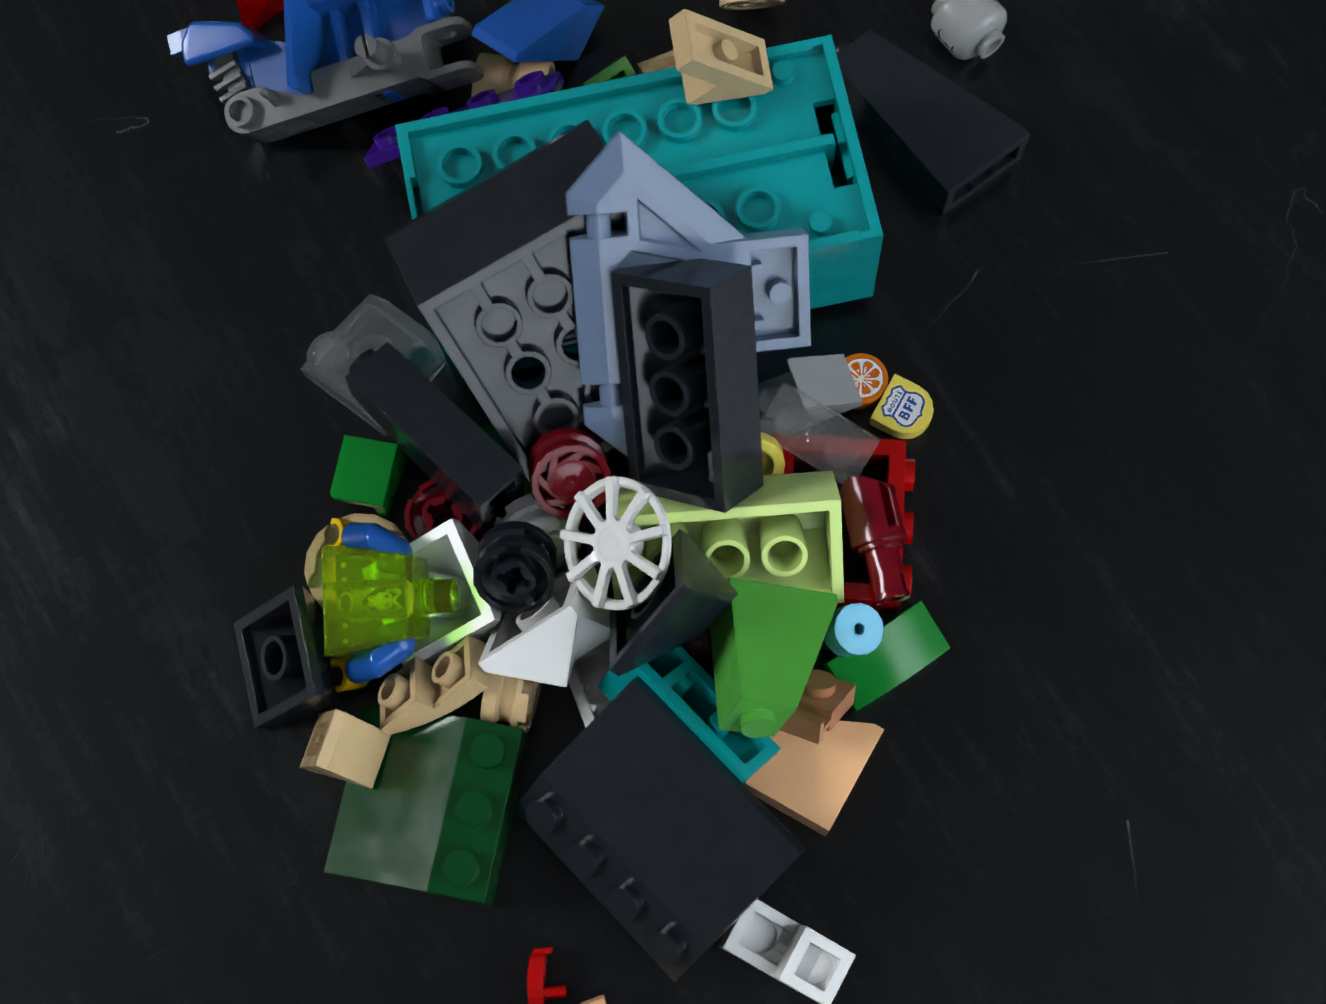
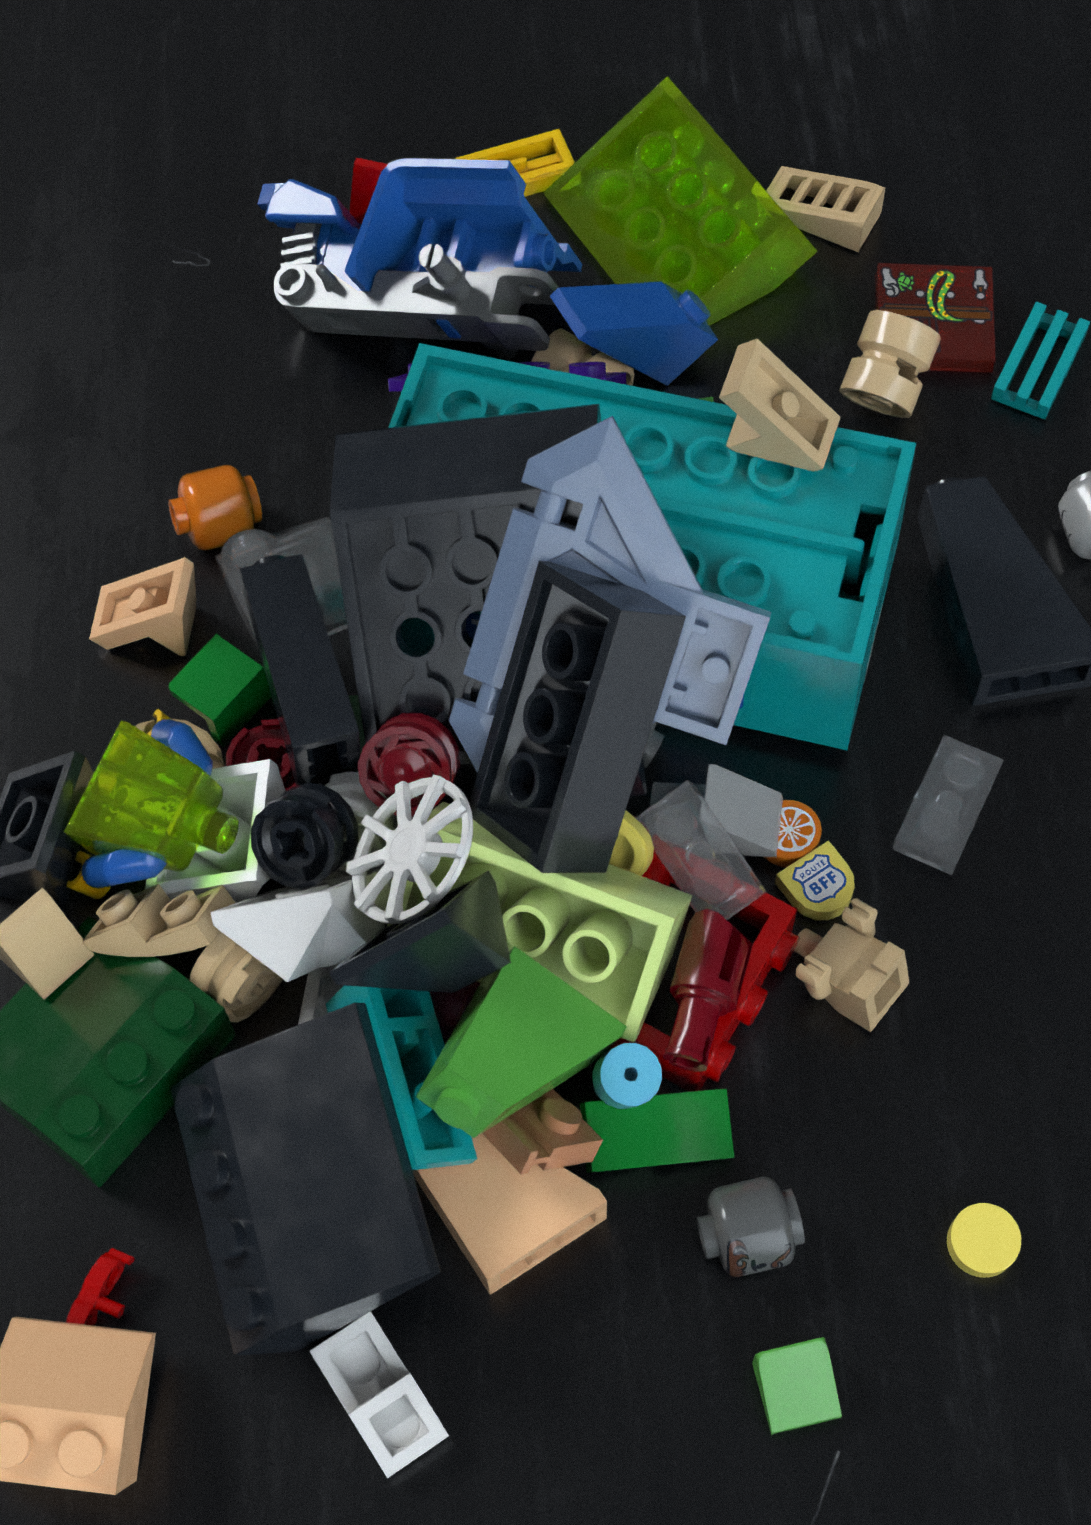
camera: 25 degrees right, 10 degrees down
(270, 438) = (150, 605): none -> light nougat slope
(279, 328) = (215, 506): none -> orange head
(963, 462) = (853, 967): none -> tan piece
(965, 302) = (947, 804): none -> clear plate
(990, 692) = (751, 1226): none -> dark grey head
(1079, 790) = (797, 1385): none -> bright green slope
(1153, 618) = (984, 1240): none -> light yellow tile

